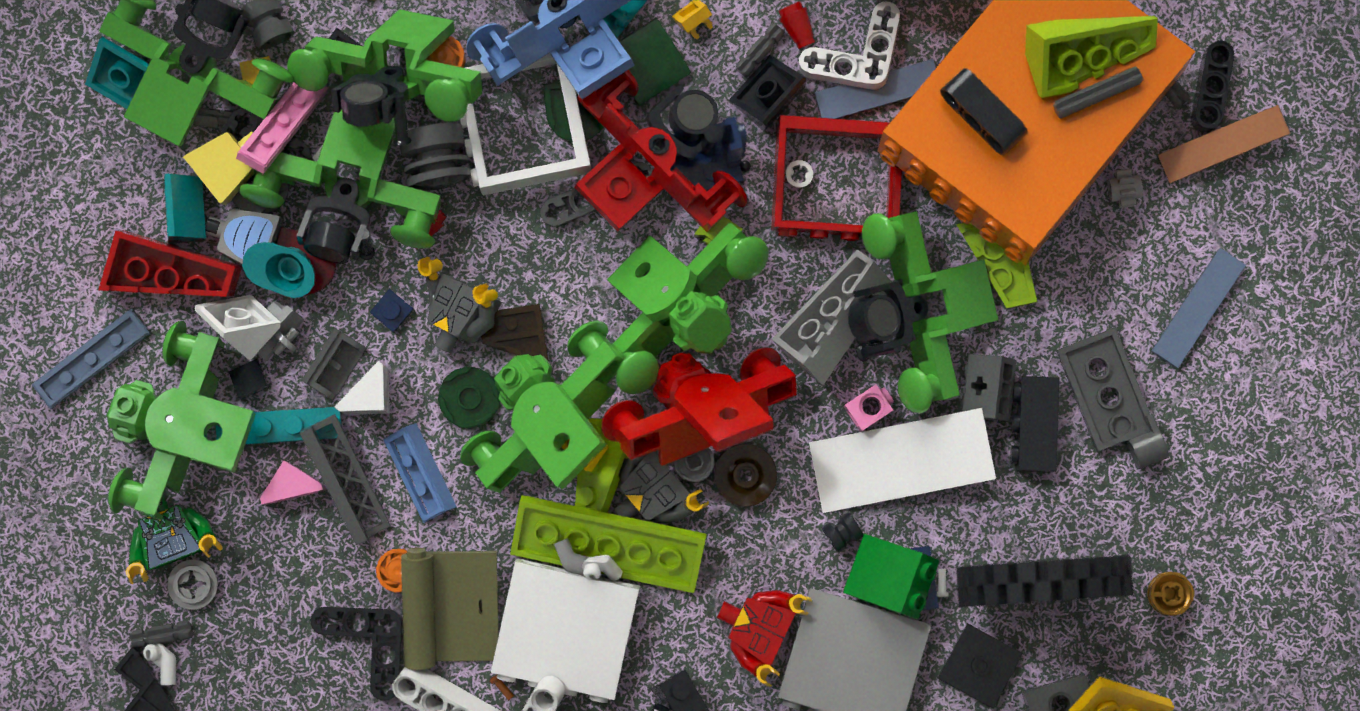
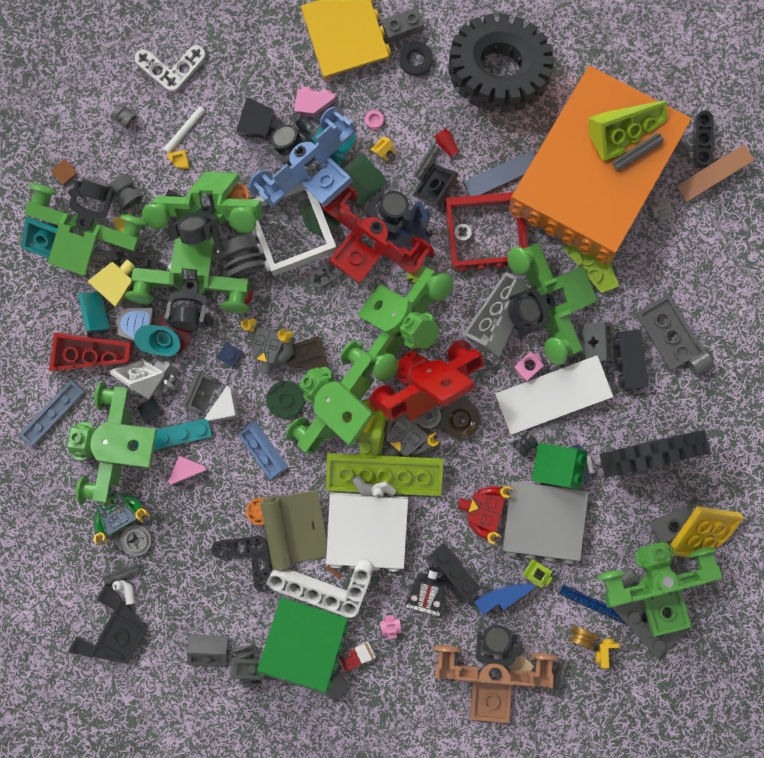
camera: 10 degrees left, 0 degrees up
(279, 127) = (143, 254): bright pink tile -> none
(334, 485) = (212, 466): dark grey fence -> none
(860, 64) = (489, 160): white beam -> none
(980, 665) = (621, 511): black plate -> none
(984, 111) = (571, 174): black beam -> none
(1170, 593) = (728, 449): pearl gold wheel -> none
(1198, 308) = (716, 274): sand blue tile -> none

